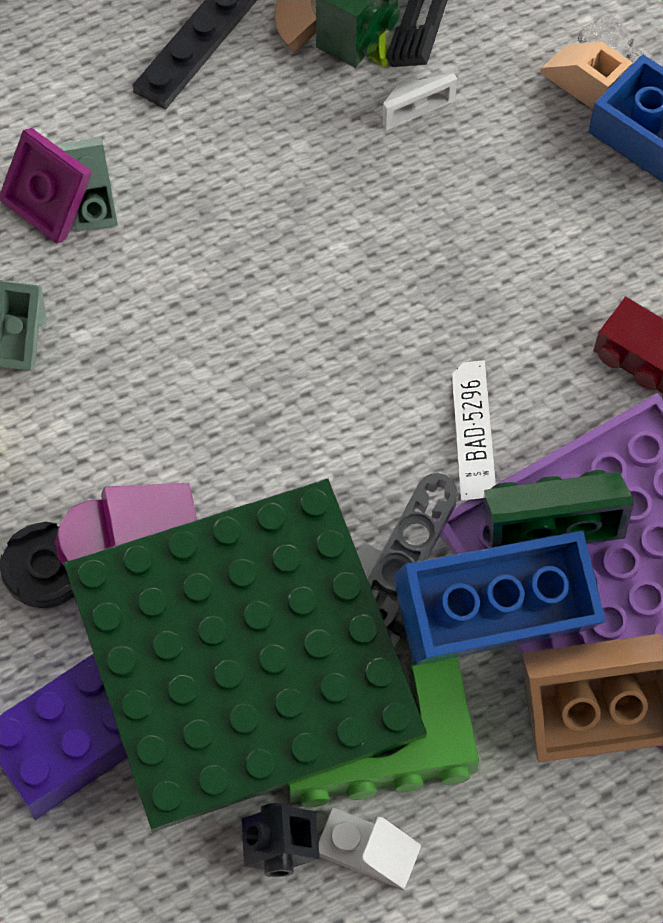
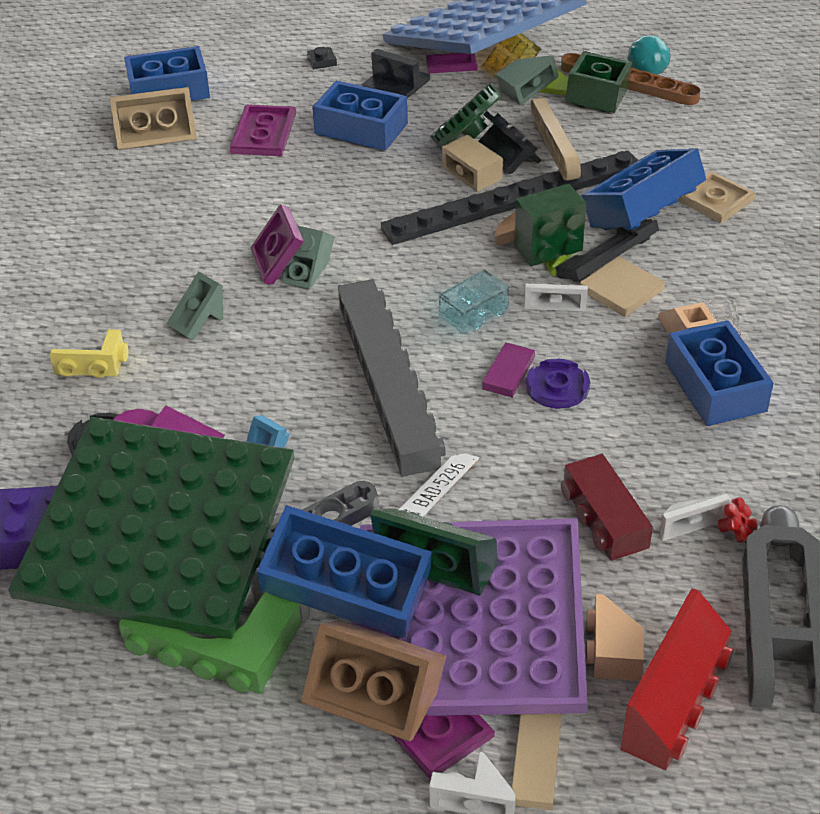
camera: 35 degrees right, 20 degrees down
(243, 463) = (267, 432): none -> dark azure tile
(271, 835) = (88, 652): black brick -> none
(313, 304) = (390, 380): none -> dark grey brick
(333, 153) = (474, 301): none -> clear light blue brick
(369, 848) = (147, 697): white slope -> none
(433, 227) = (508, 370): none -> magenta tile
(473, 47) = (622, 286): none -> tan tile
(504, 228) = (550, 390): none -> dark purple tile

